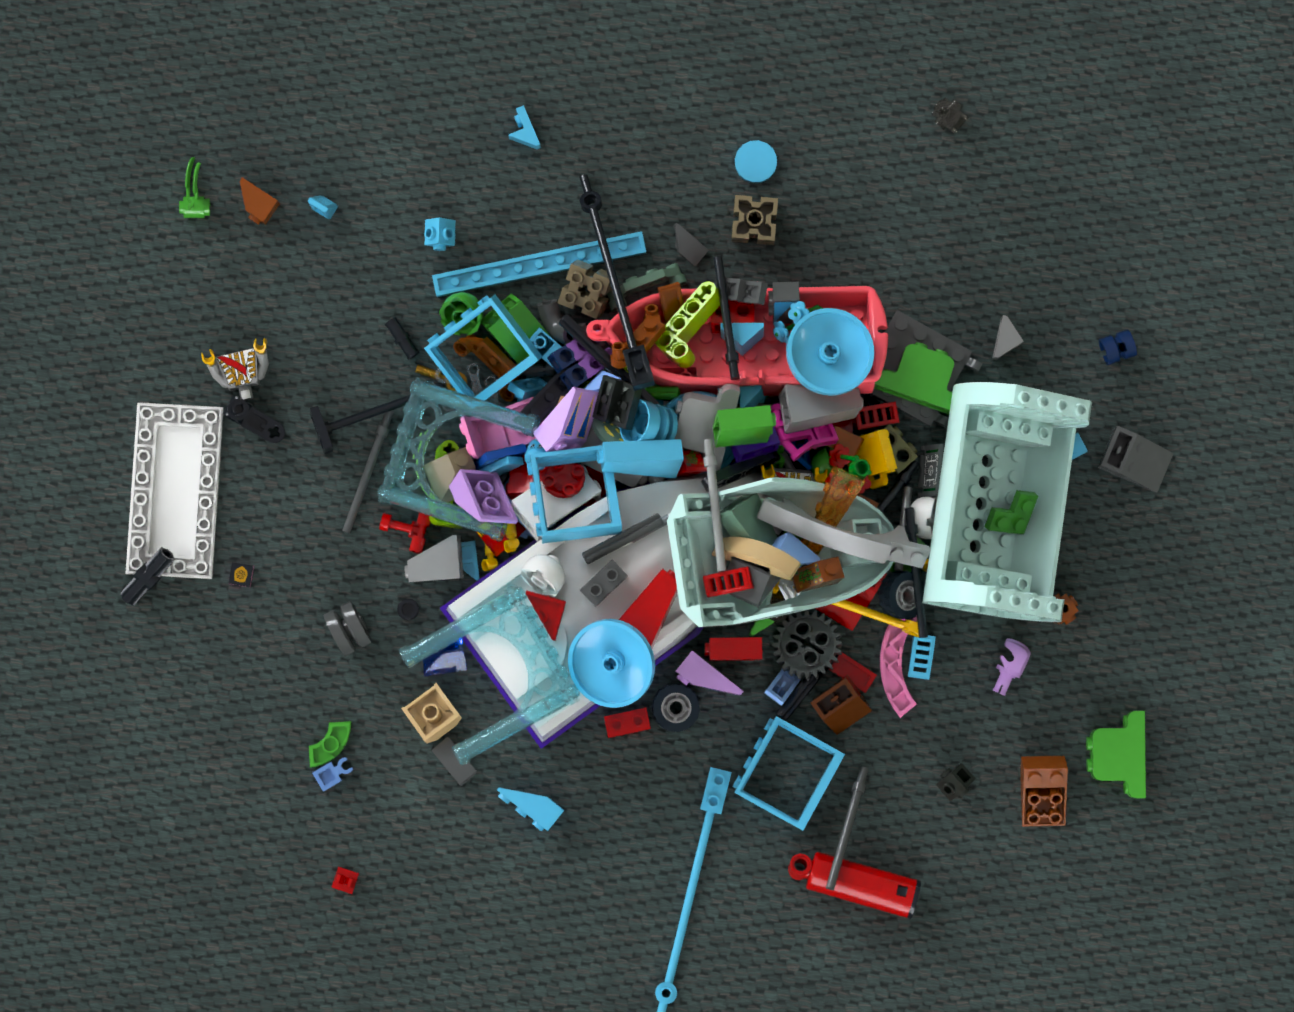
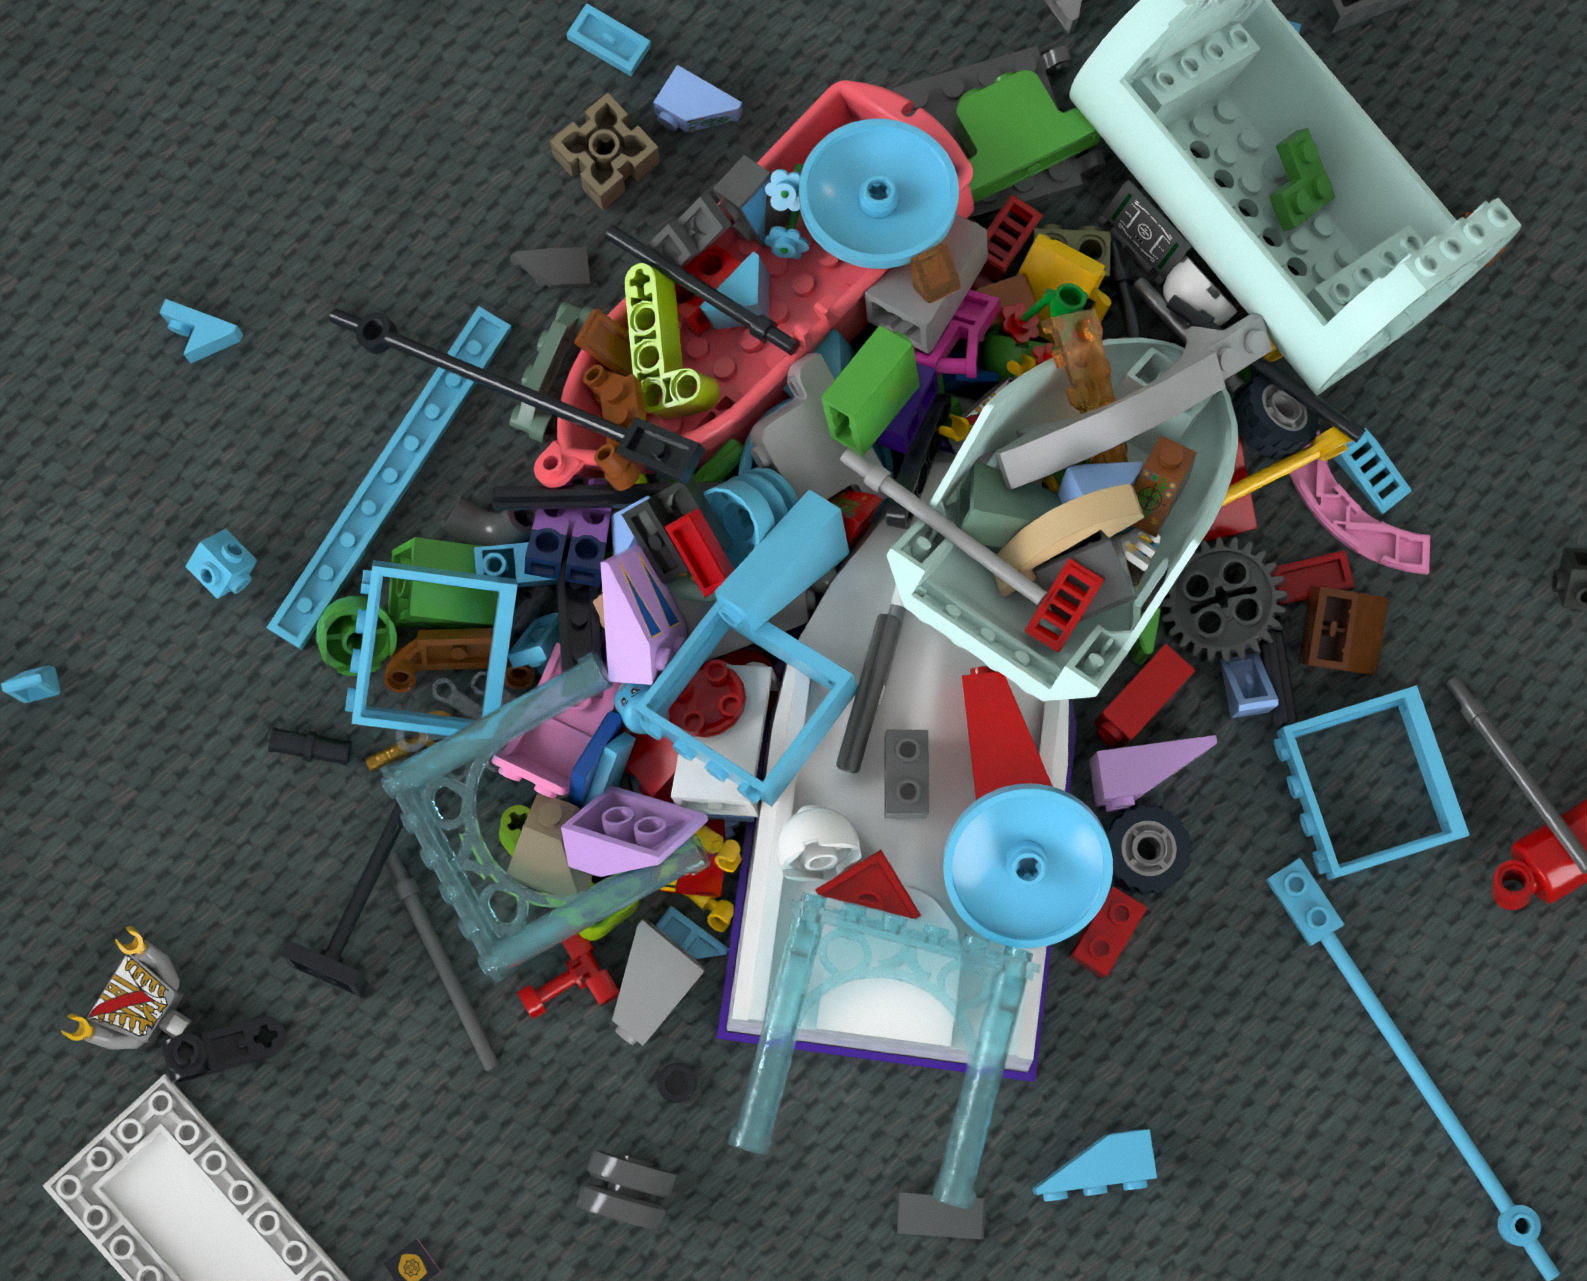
camera: 50 degrees left, 5 degrees down
(432, 714) = (850, 1185): tan slope -> none
(446, 660) = (801, 1095): clear blue slope -> none
(575, 295) = (474, 465): dark tan brick -> none
(616, 420) = (700, 551): none -> red tile
(755, 161) = (531, 85): medium azure tile -> none
(804, 174) = (608, 39): none -> medium azure plate
(810, 235) = (694, 103): none -> light blue slope
(817, 405) = (934, 273): none -> clear orange slope
(1014, 668) = (1497, 373): lavender piece -> none

